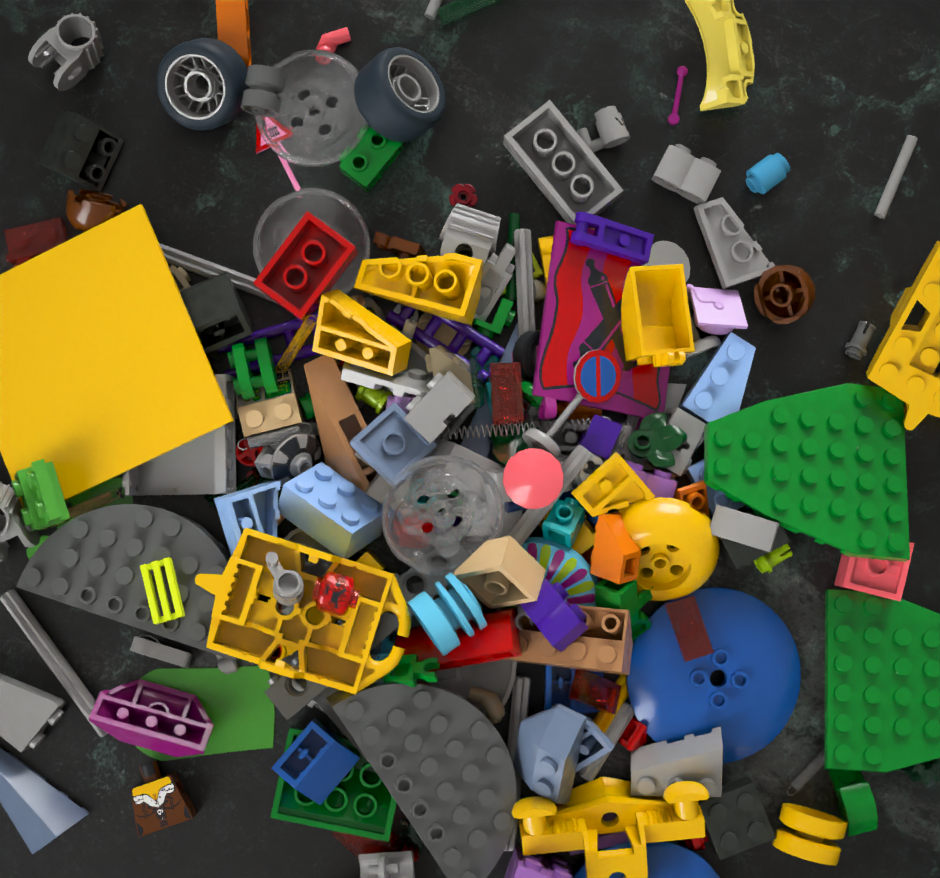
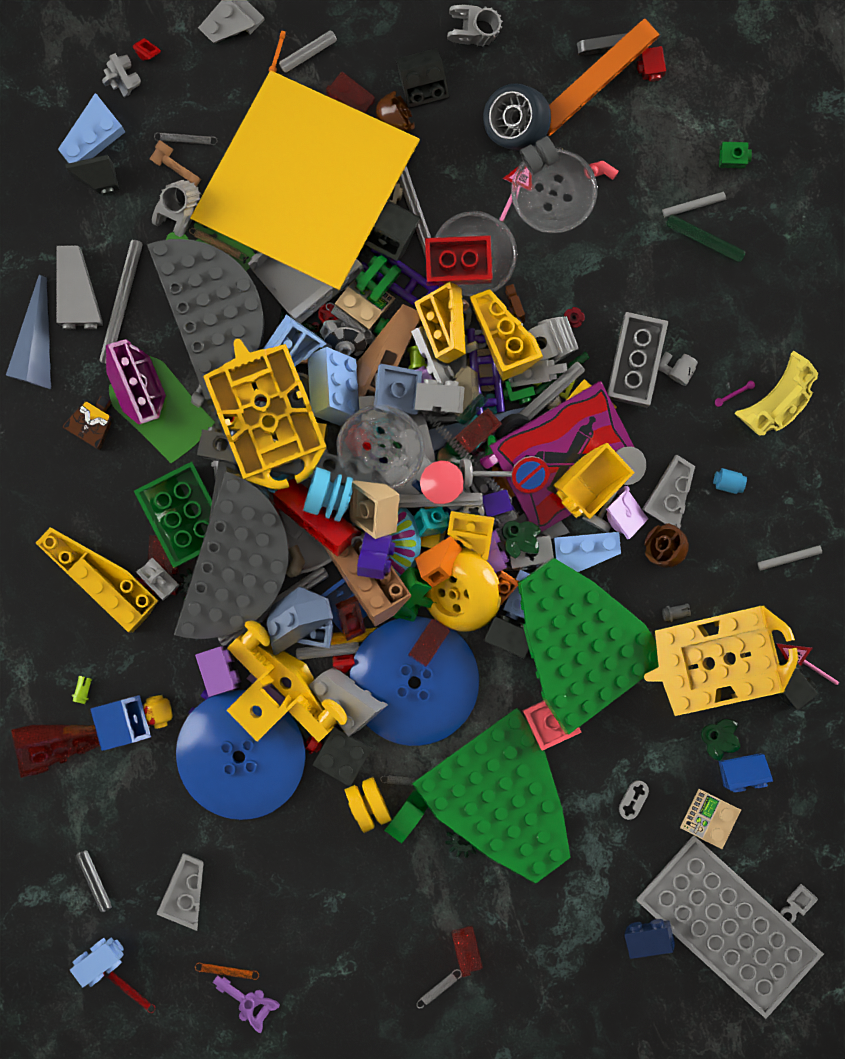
camera: 50 degrees right, 0 degrees up
(40, 496) = (209, 216): bright green brick -> none
(151, 593) = (222, 312): neon yellow tile -> none
(160, 651) = (174, 355): light grey piece -> none
(287, 585) = (274, 391): light grey piece -> none
(299, 332) = (408, 293): yellow piece -> none
(316, 762) = (186, 490): blue slope -> none
(335, 593) = (289, 422): head -> none
(370, 159) = (553, 246): green brick -> none
(399, 94) = (601, 233): black wheel -> none
(411, 669) = (281, 500): green plate -> none
(612, 238) = (617, 420): dark purple plate -> none
(686, 174) = (691, 434): light grey brick -> none
(744, 528) = (510, 625): light grey slope -> none
(769, 560) = (509, 661): lime pin -> none

